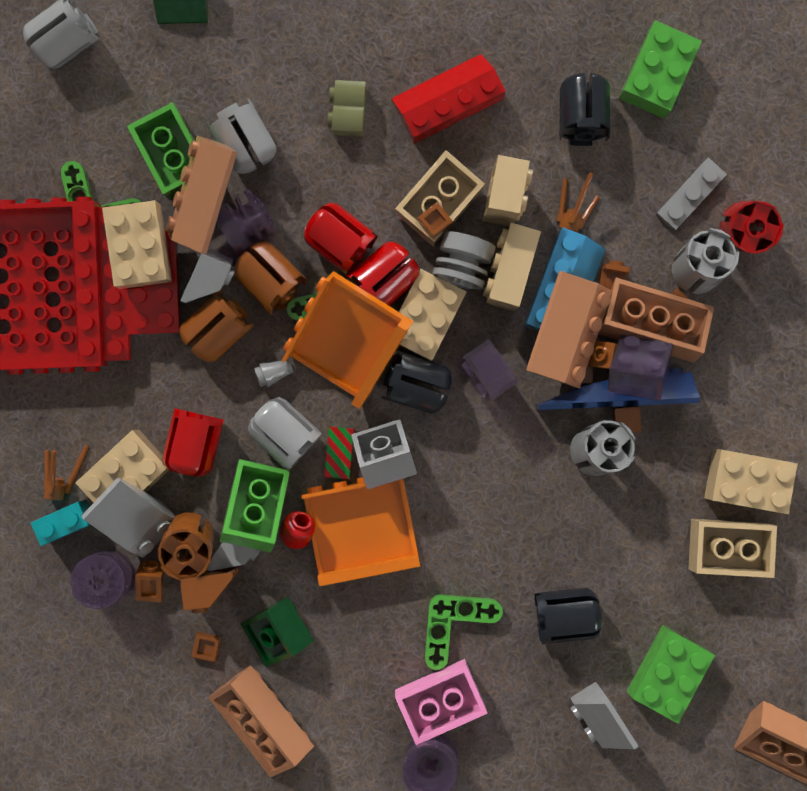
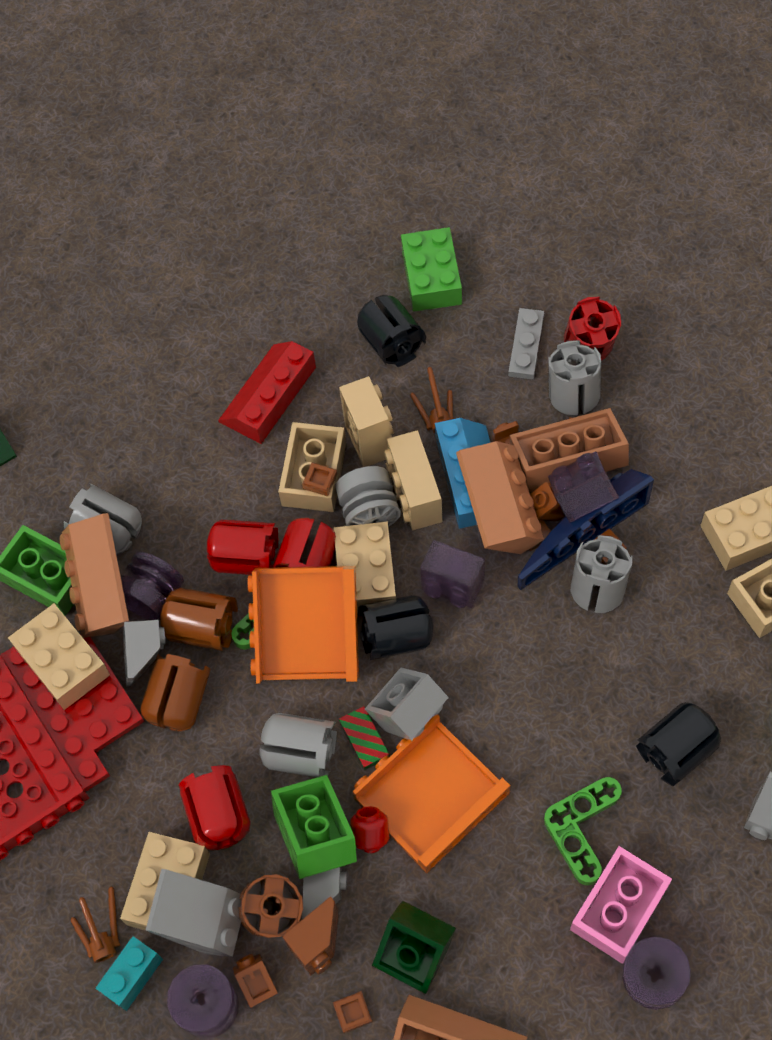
camera: 25 degrees left, 25 degrees down
(271, 372) = (252, 705): light grey cone -> none
(348, 108) = (186, 447): olive brick -> none

